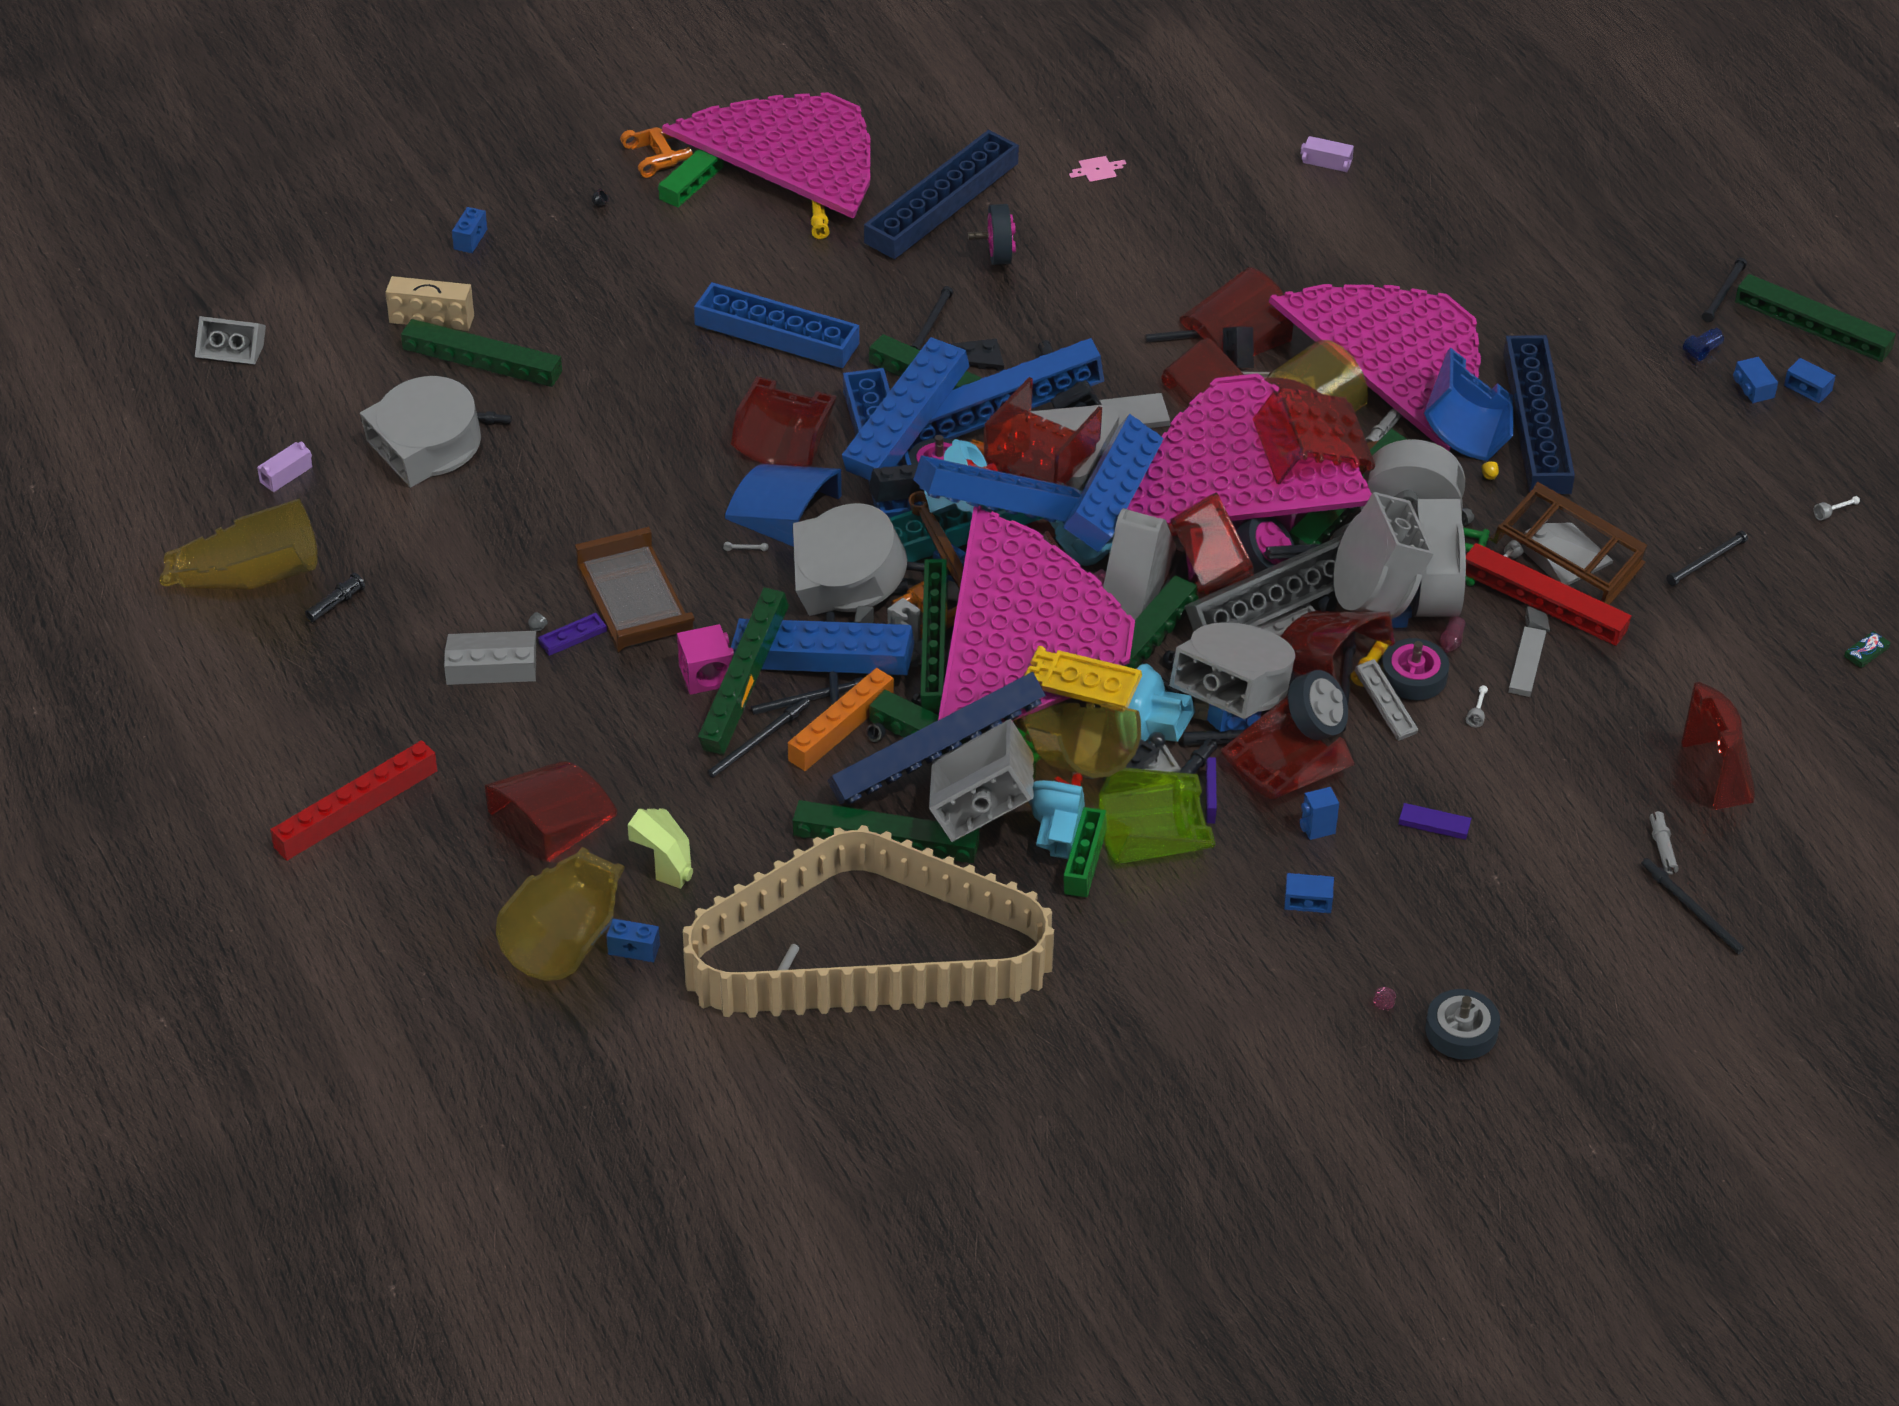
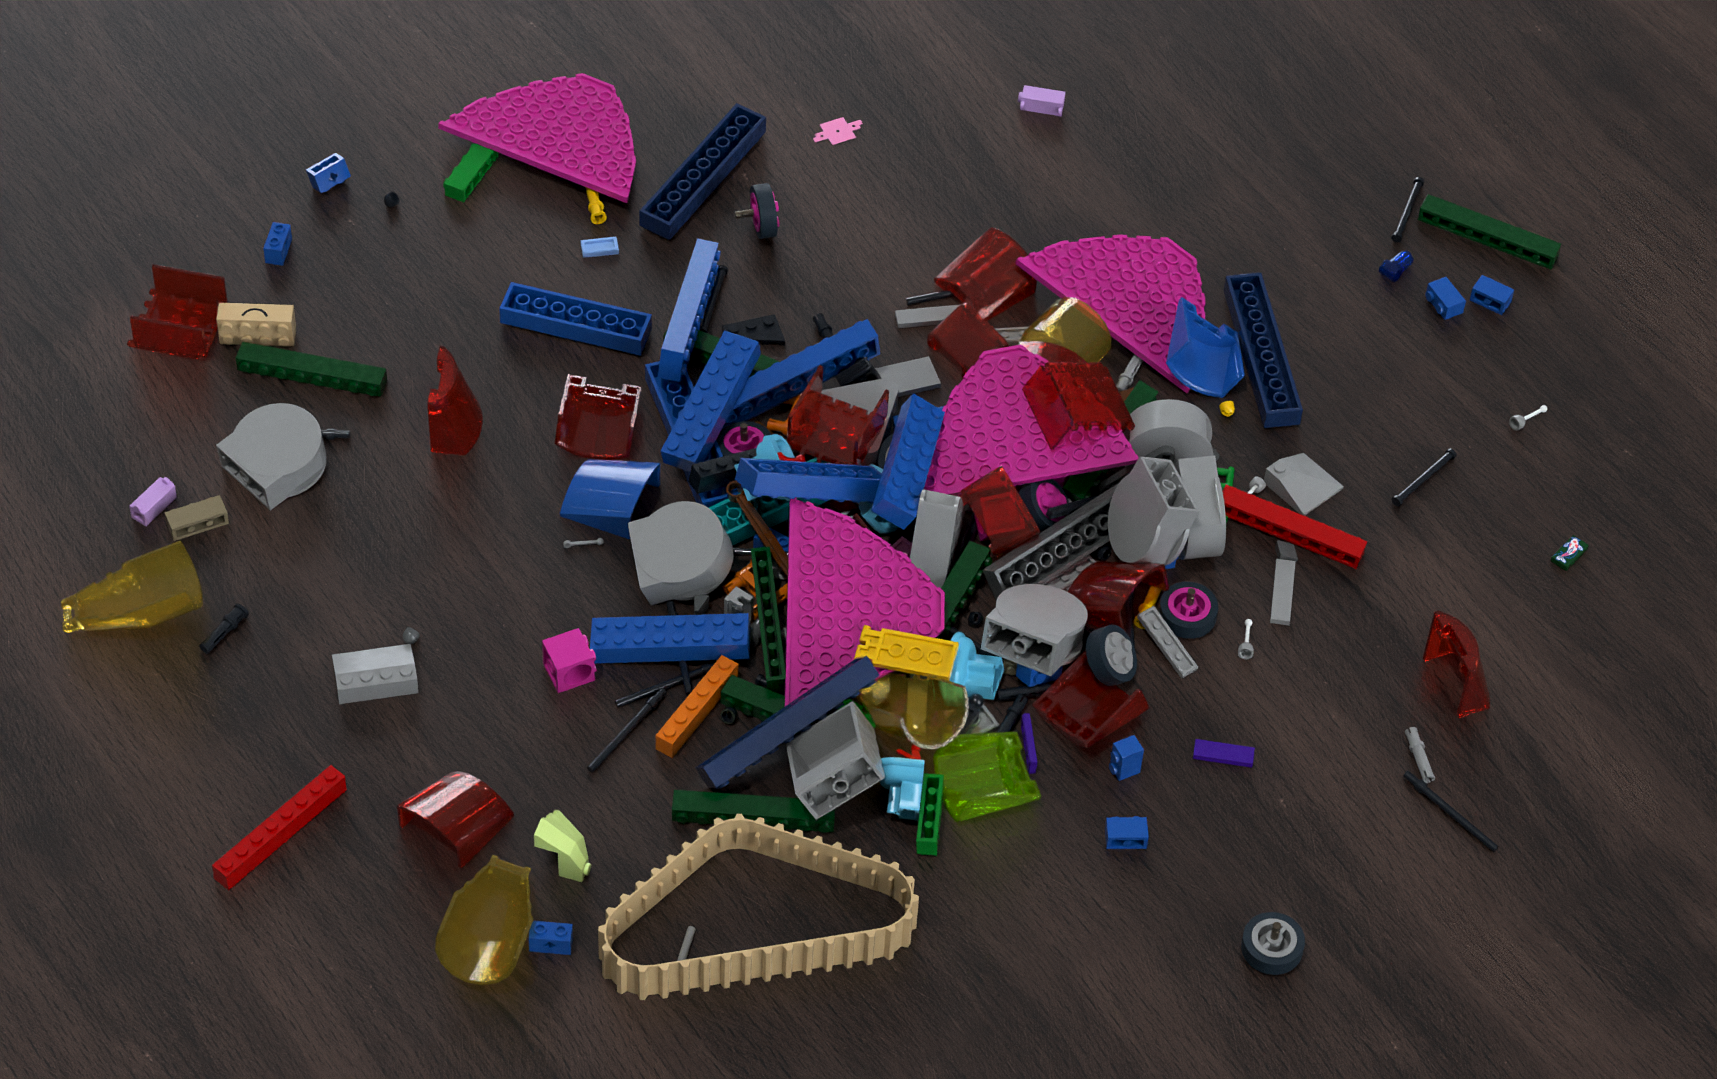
camera: 10 degrees left, 5 degrees up
(229, 340) = (77, 376): light grey slope -> none
(328, 486) = (196, 518): none -> dark tan brick
(352, 288) = (181, 314): none -> clear red windscreen
(536, 166) = (328, 173): none -> blue brick
(572, 634) = (443, 644): dark purple tile -> none
(623, 399) = (453, 410): none -> clear red windscreen
(631, 588) = (489, 595): piece -> none
(664, 155) = (445, 152): orange connector -> none
(743, 671) = (606, 671): dark green brick -> none
(816, 260) = (599, 247): none -> light blue tile
(899, 322) = (689, 310): none -> brick
(1157, 353) = (922, 316): none -> light grey tile
(1239, 346) = (992, 306): black hinge -> none
(1383, 1002) = (1203, 925): clear pink bush -> none
(1452, 635) = (1215, 573): clear pink piece -> none
(1619, 581) = (1319, 451): reddish brown piece -> none

